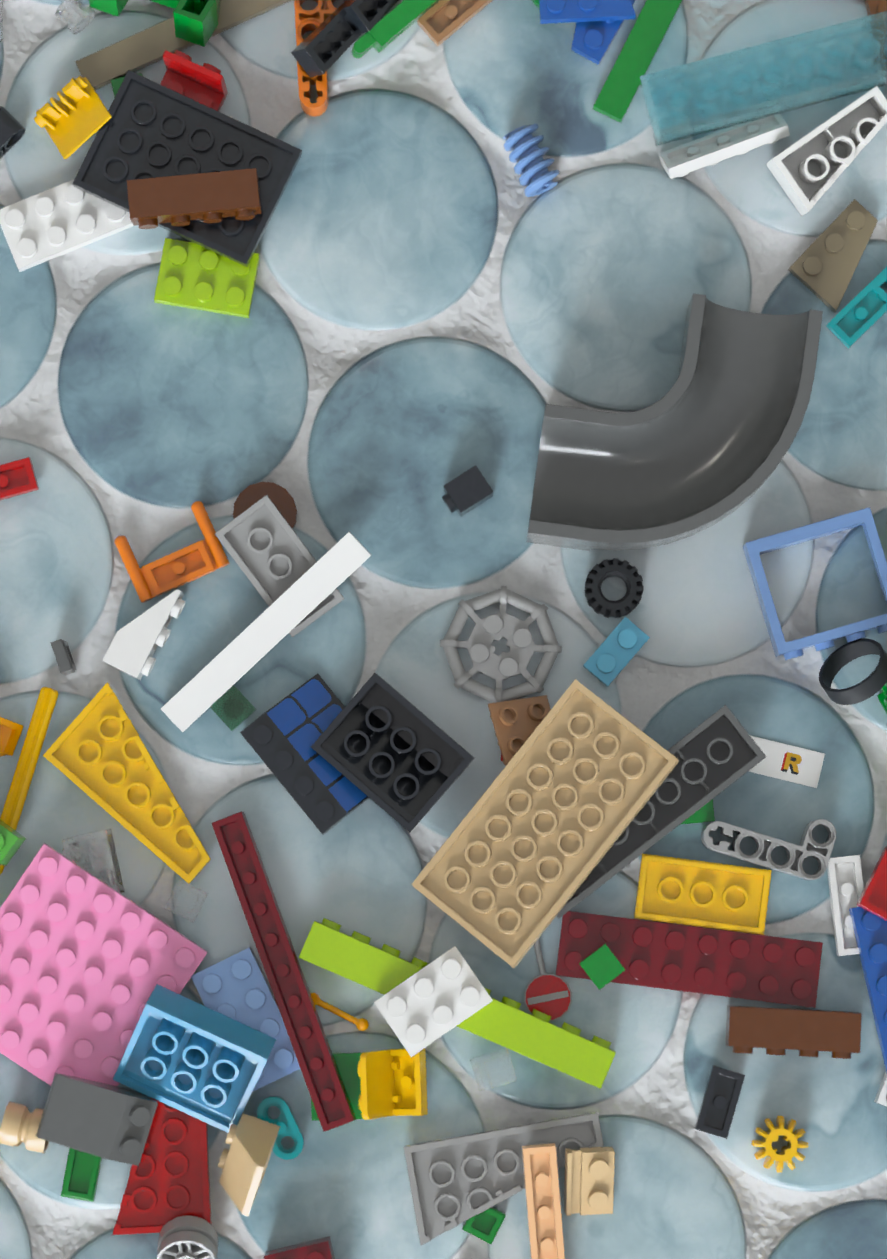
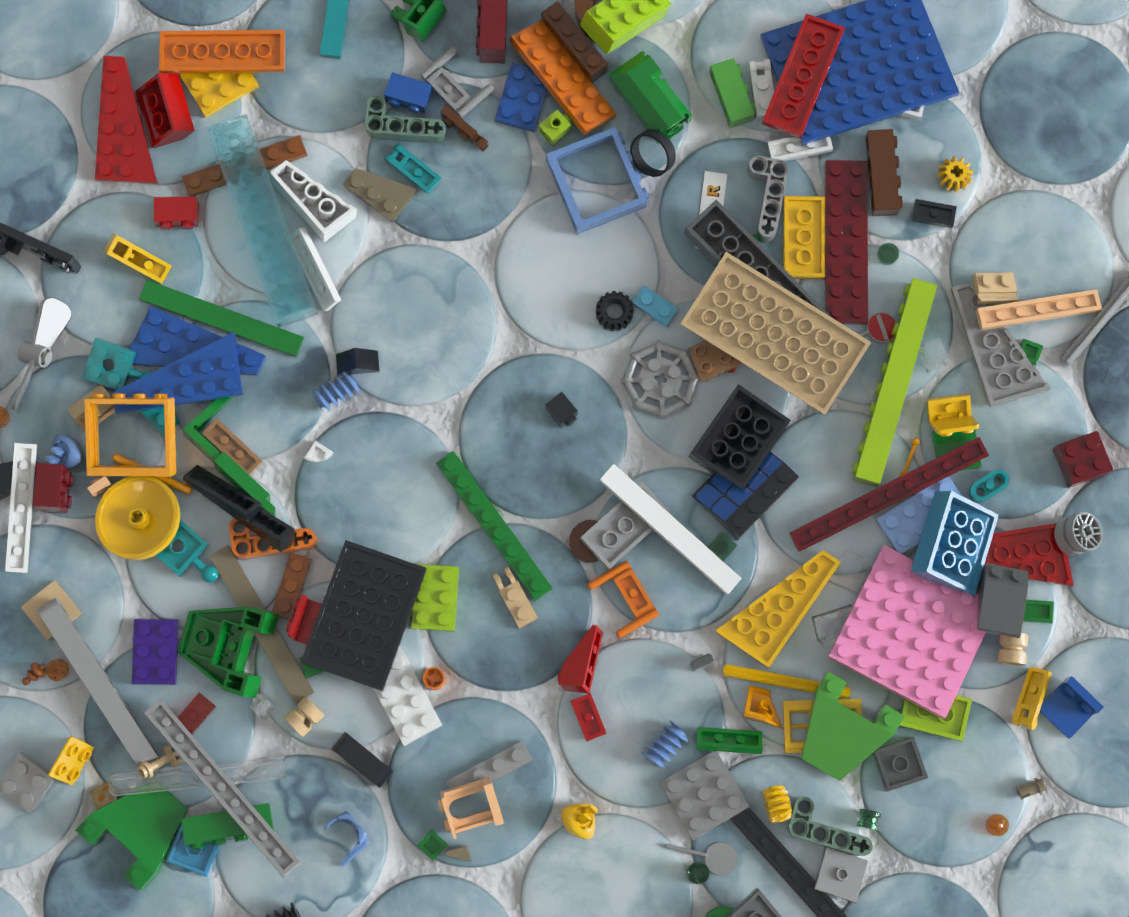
camera: 100 degrees left, 5 degrees down
(49, 67) = (304, 716): none -> tan wheel
(74, 116) = (335, 697): yellow hinge -> none
(79, 477) = (581, 663): none -> red slope
(84, 257) = (434, 678): none -> orange wheel
(137, 641) = (685, 614): white slope -> none
(190, 394) = (516, 600): none -> tan hinge
(194, 198) = (386, 604): reddish brown brick -> none
(246, 1159) = (1015, 500): tan slope -> none
(250, 72) = (291, 585): none -> dark orange plate
(305, 374) = (494, 526): none -> green plate
(433, 1001) = (897, 394): white plate -> none
(443, 127) = (317, 453): none -> white tile
(575, 198) = (357, 361): none -> black slope
(602, 966) = (860, 292): green tile -> none
(663, 1021) = (888, 253): none -> clear green tile
(690, 454) = (524, 264): dark grey piece -> none

